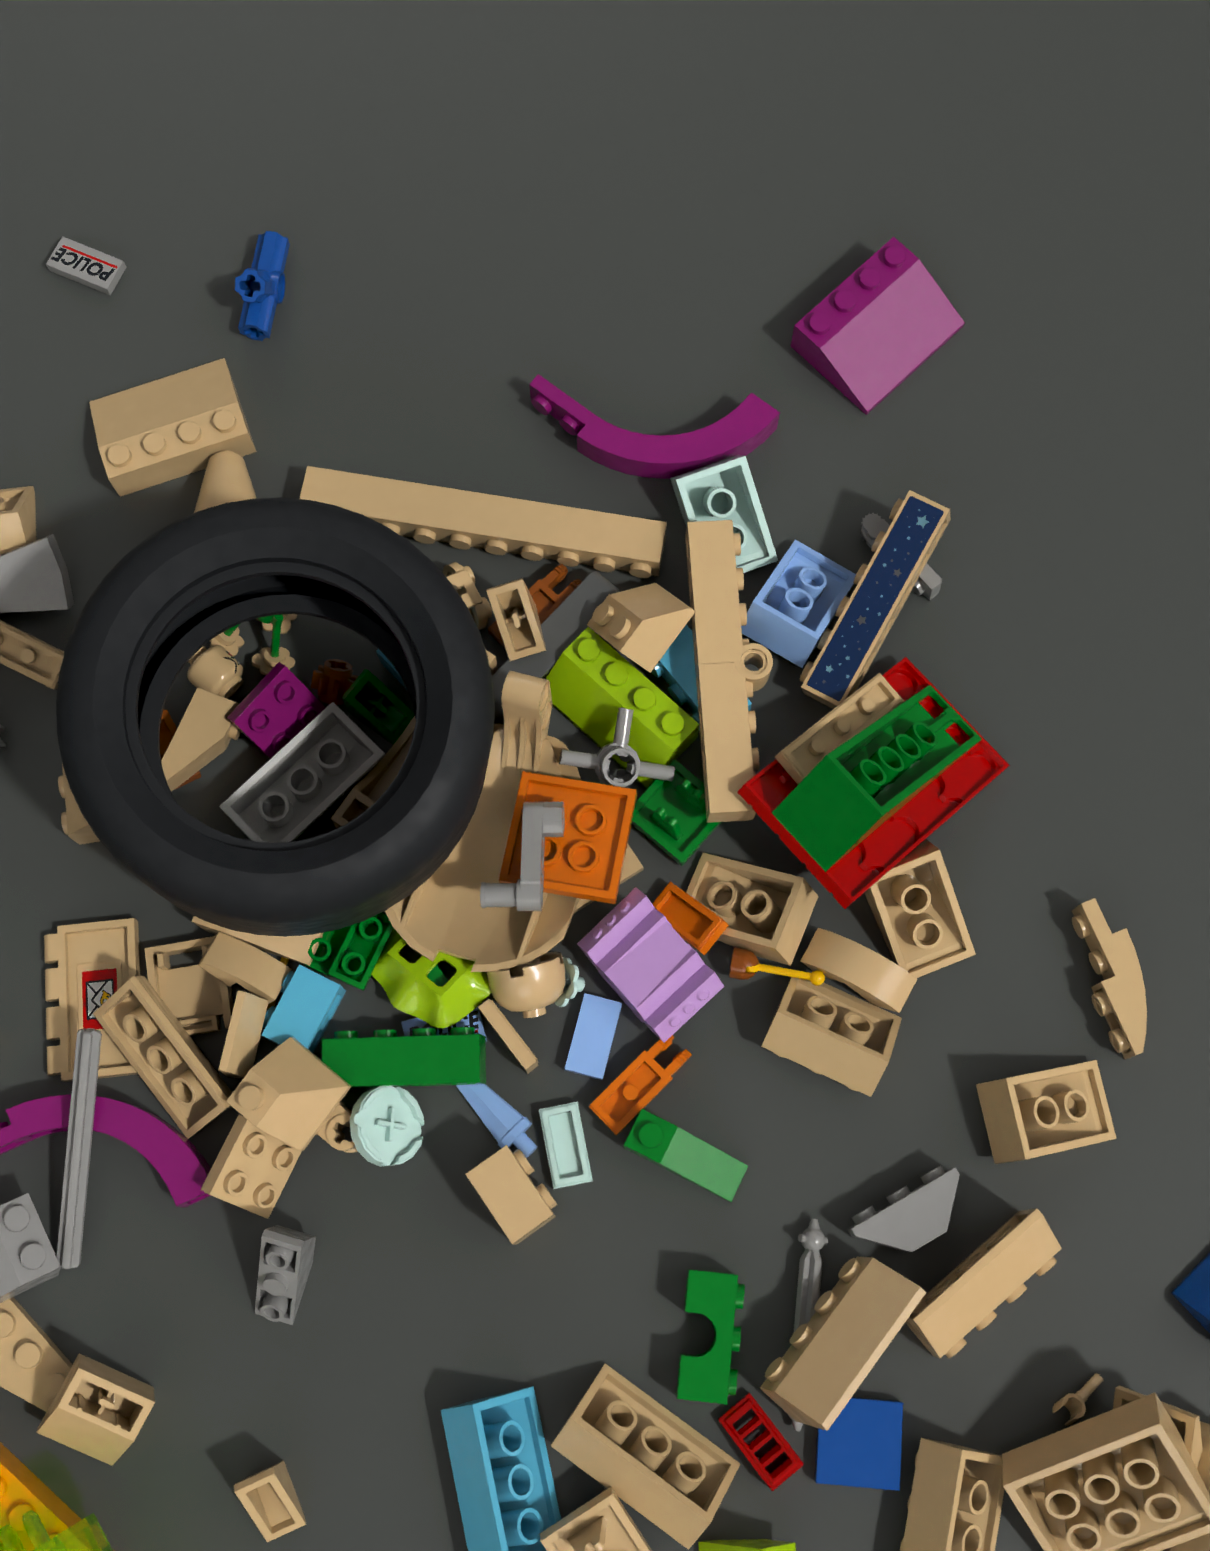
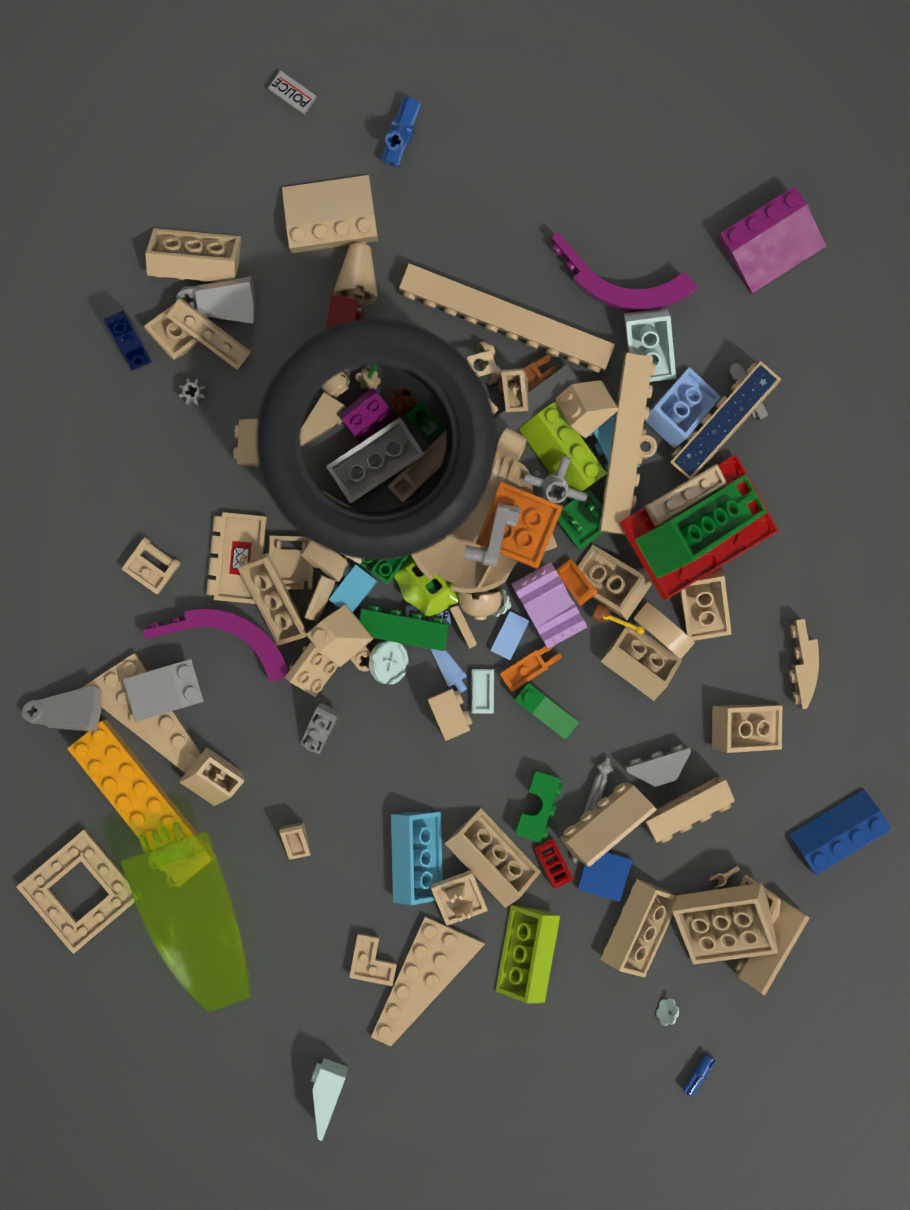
camera: 10 degrees right, 15 degrees up
(78, 1147) = (221, 639): light grey axle -> none

